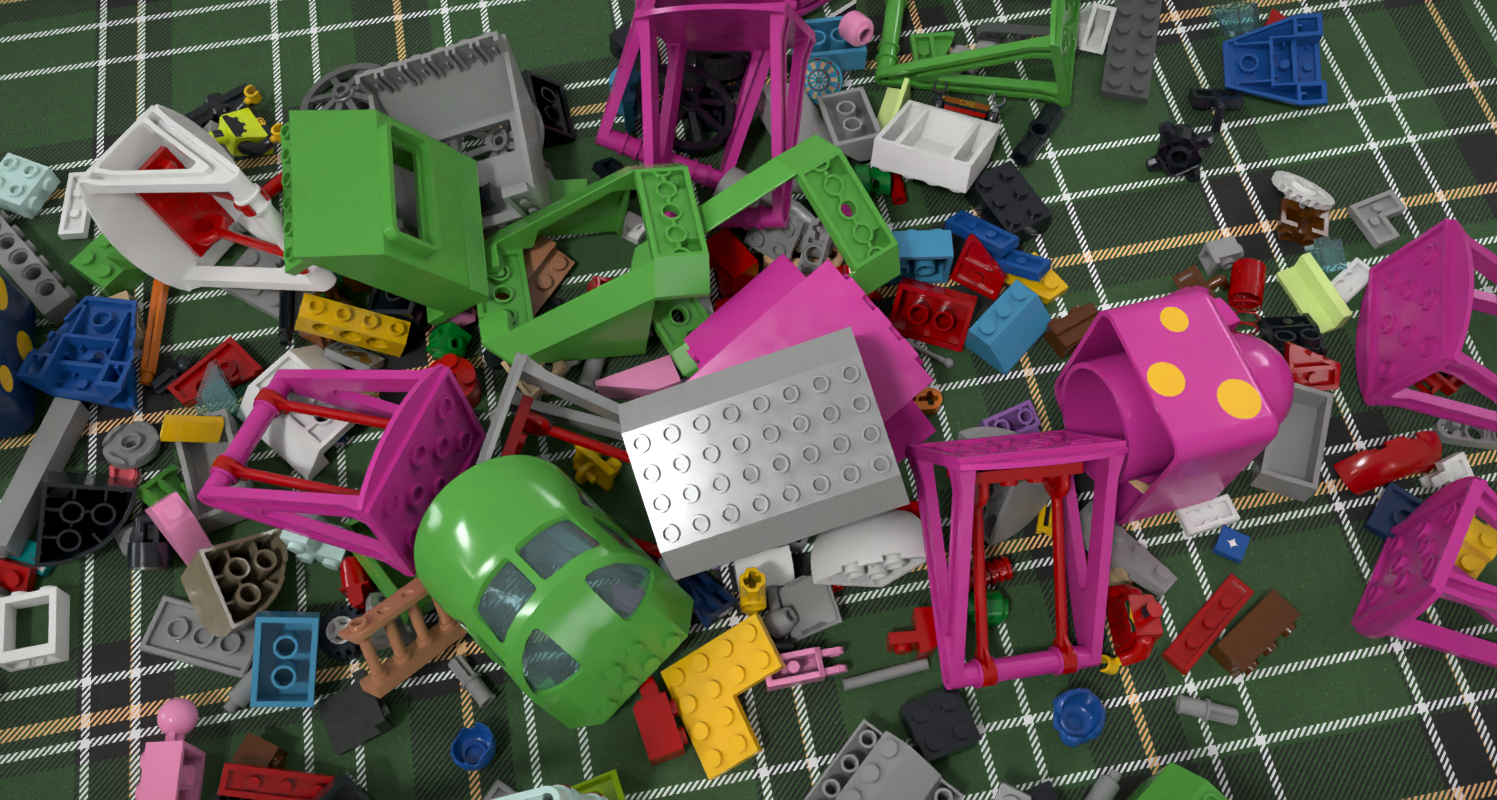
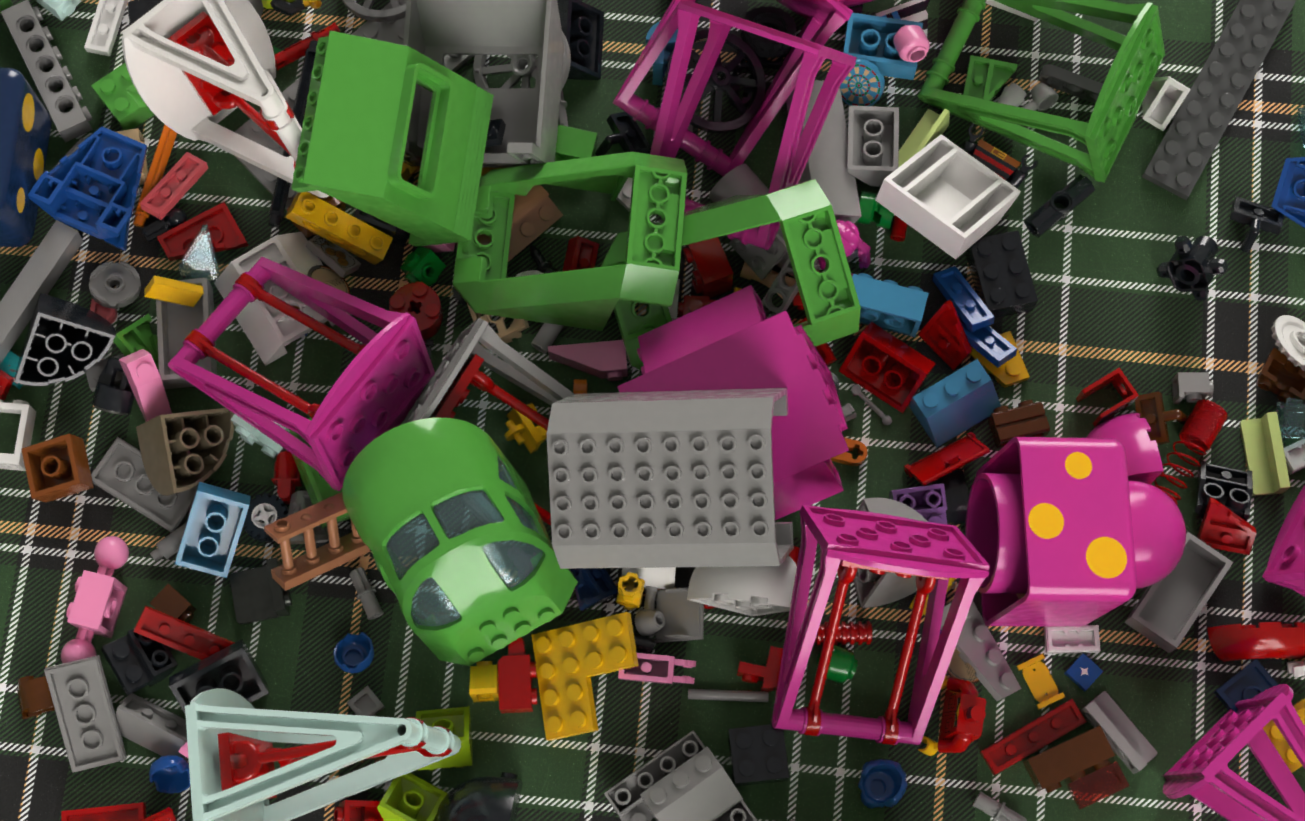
camera: 15 degrees right, 10 degrees up
(100, 644) = (57, 468): none -> dark orange brick
(174, 335) = (174, 185): none -> coral plate
(625, 736) = (484, 682): none -> yellow slope
(1021, 380) = (947, 459): none -> red door
(1044, 408) = (956, 496): none -> black slope
(1148, 267) = (1116, 378): none -> red piece
(1193, 566) = (1040, 681): none -> yellow piece
(1293, 652) = (1098, 785): none -> clear red plate
(1312, 605) = (1120, 732): none -> light grey panel

